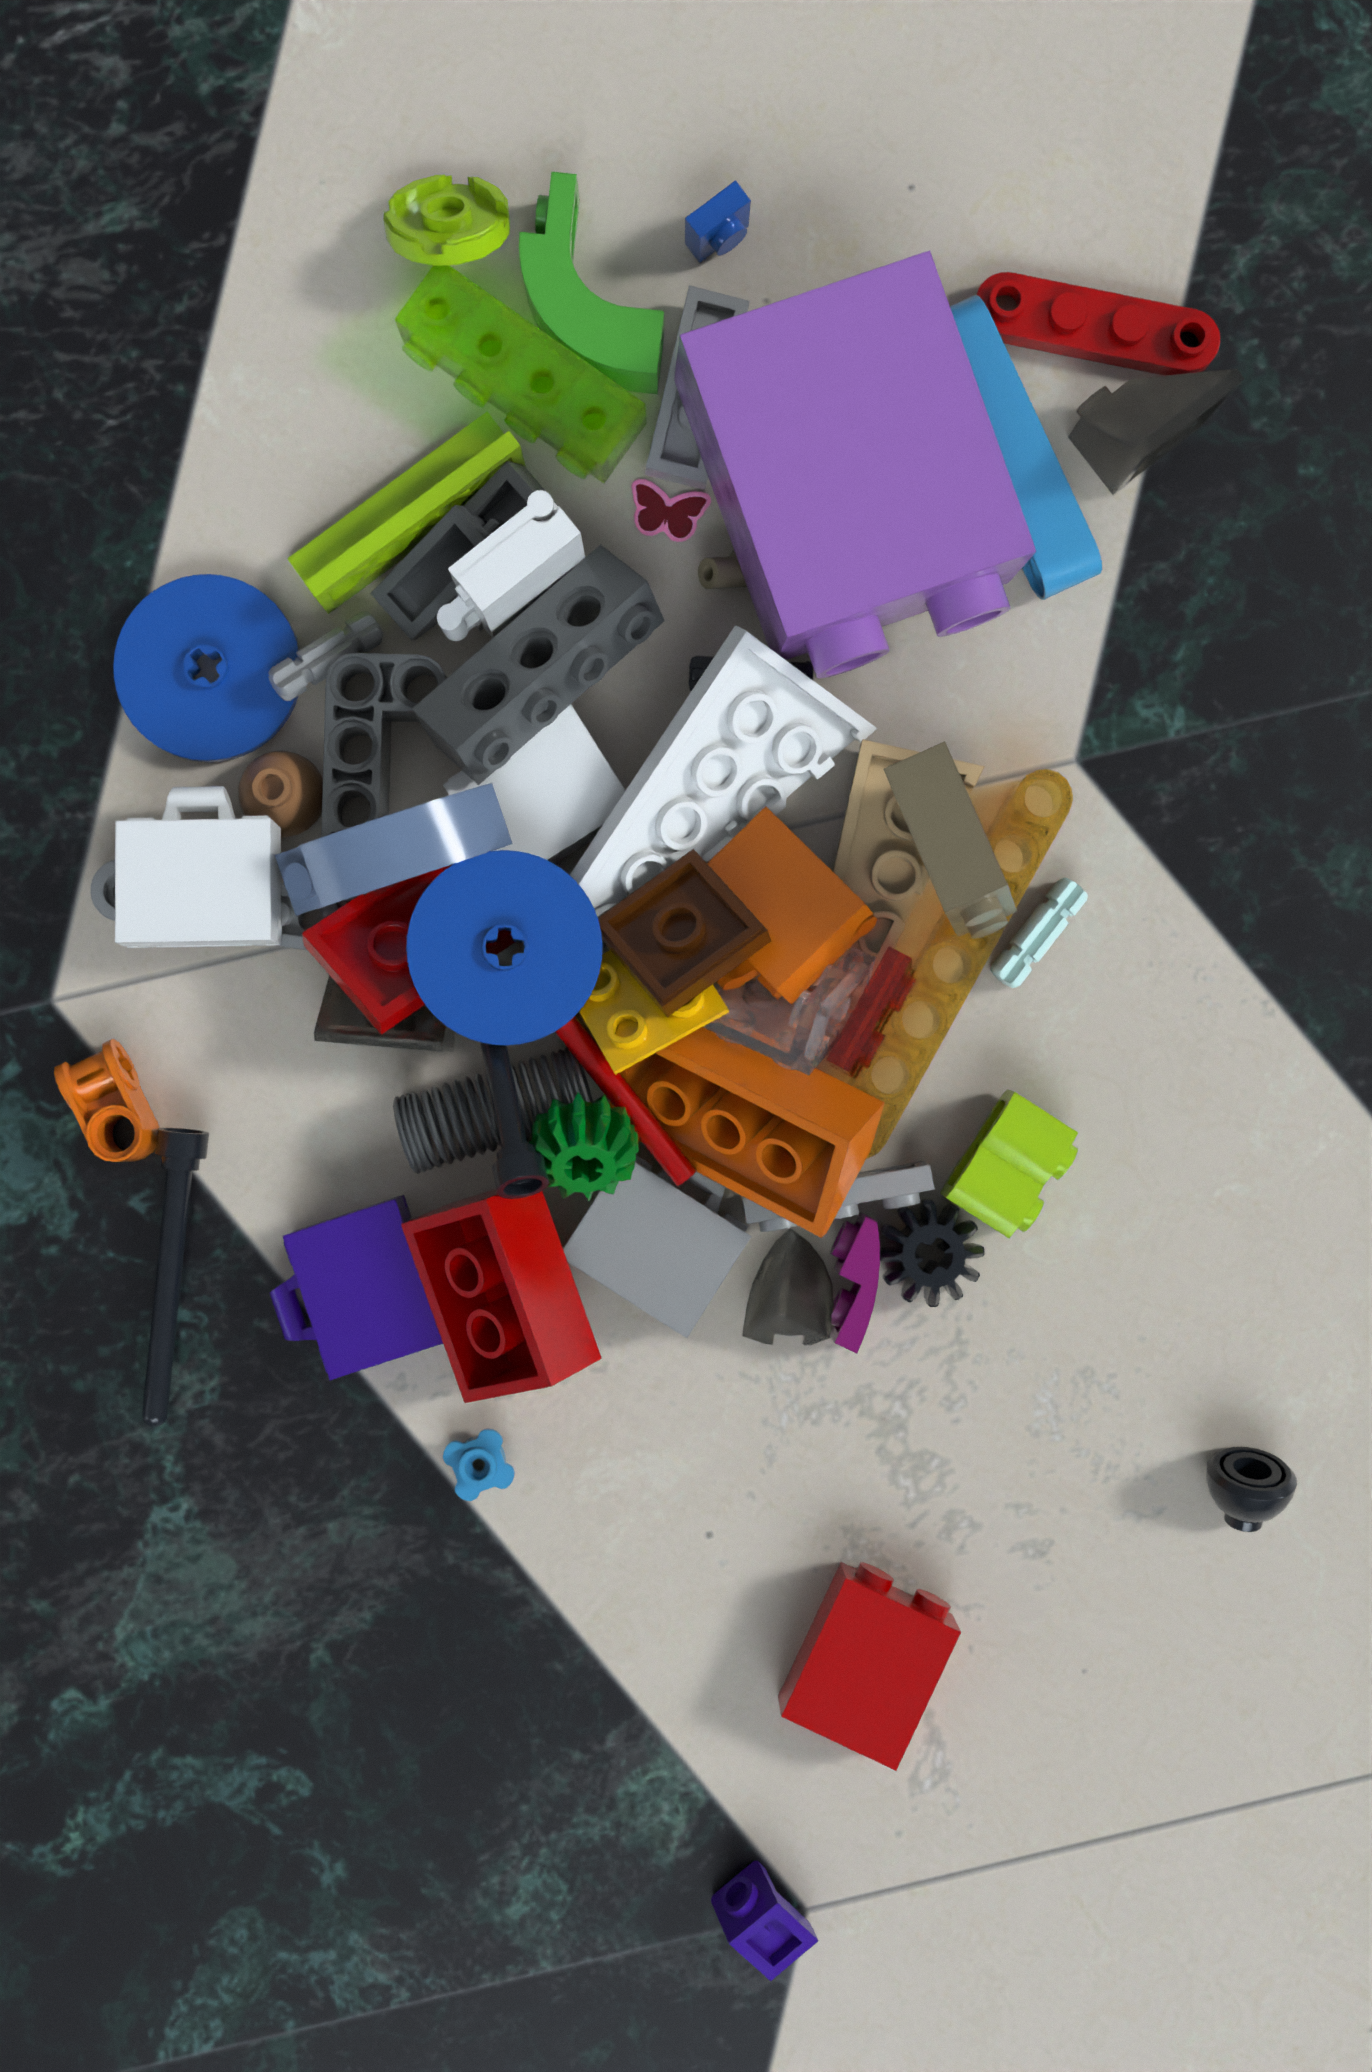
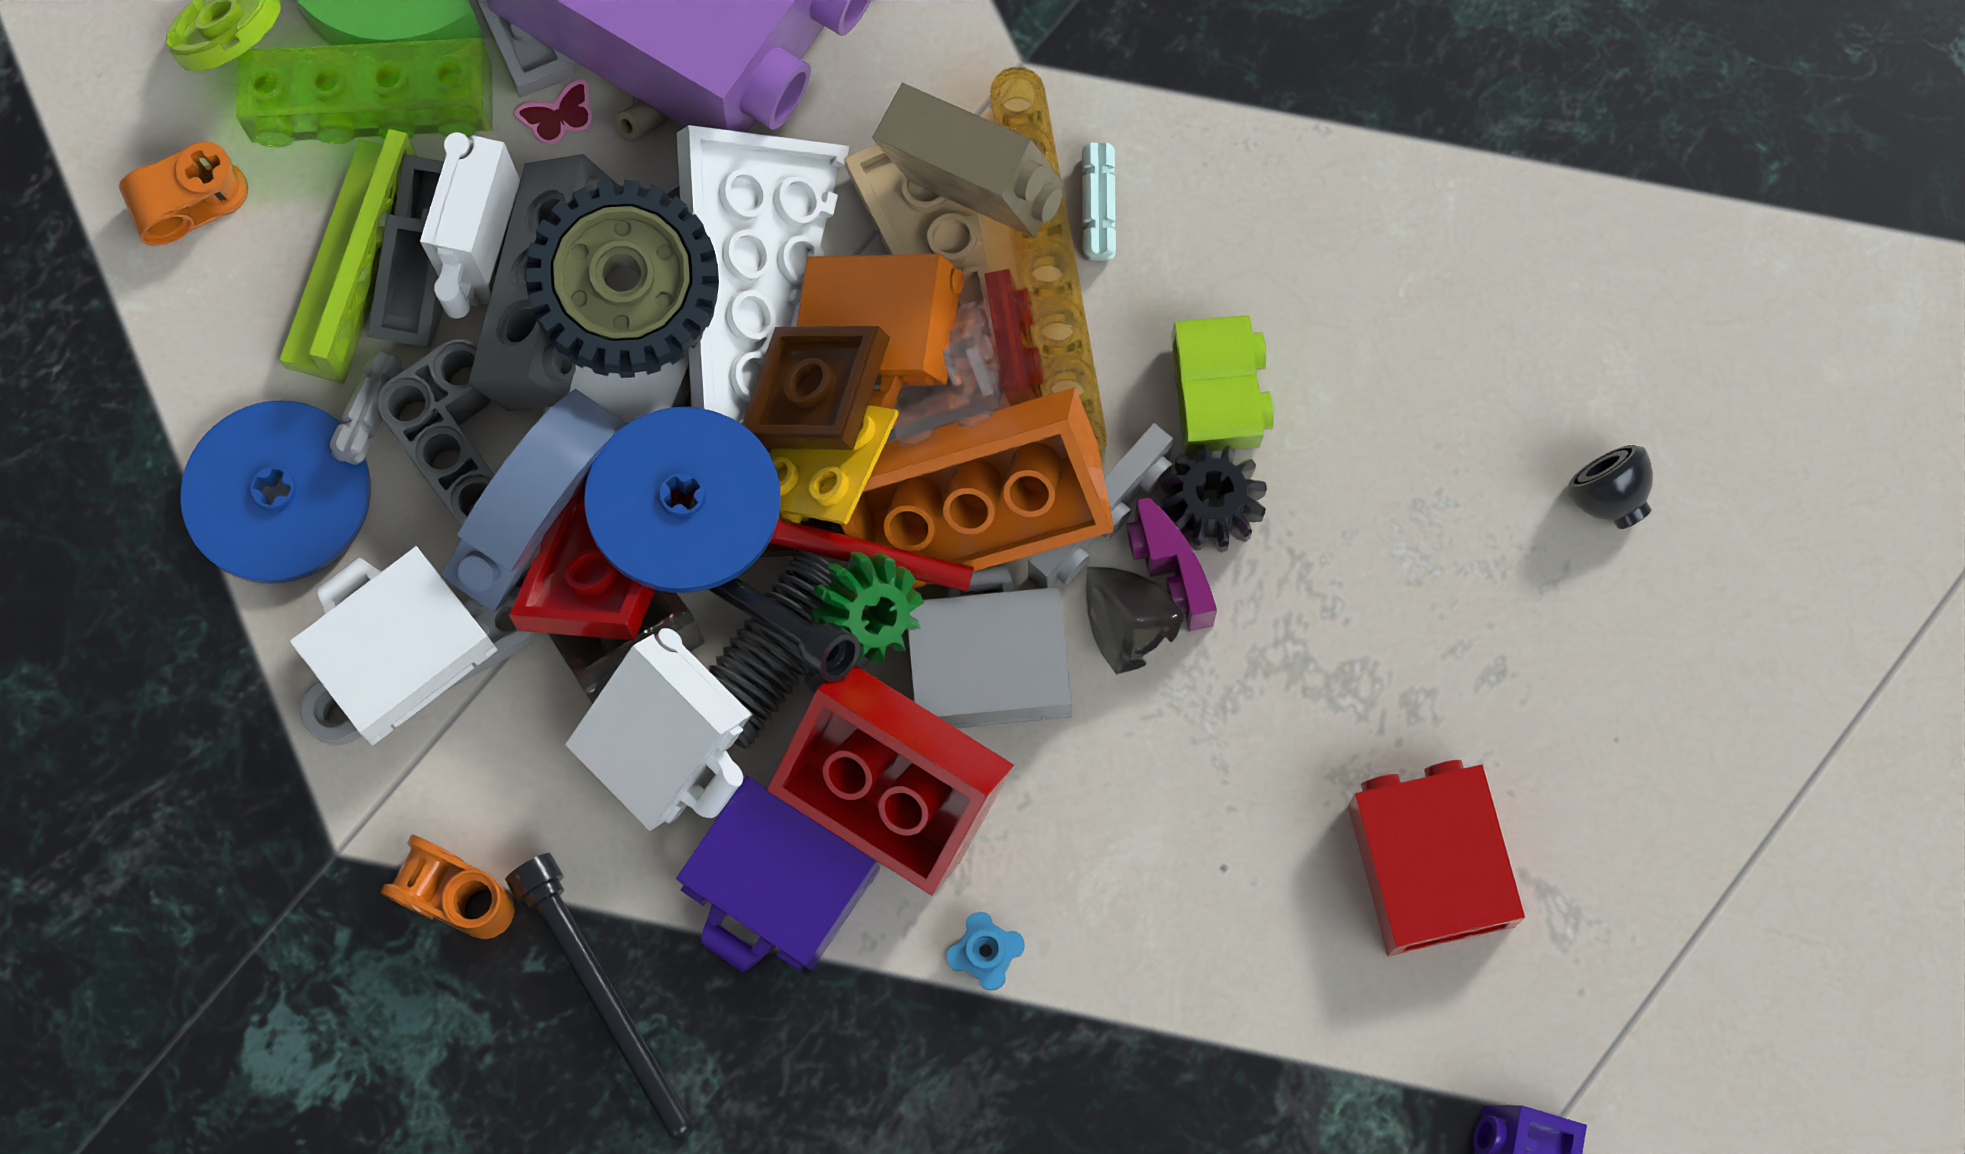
camera: 40 degrees left, 15 degrees down
(284, 789) = (403, 527): medium nougat brick -> none
(300, 347) = (178, 194): none -> orange piece
(352, 1121) = (662, 733): none -> white piece
(536, 719) = (613, 231): none -> wheel

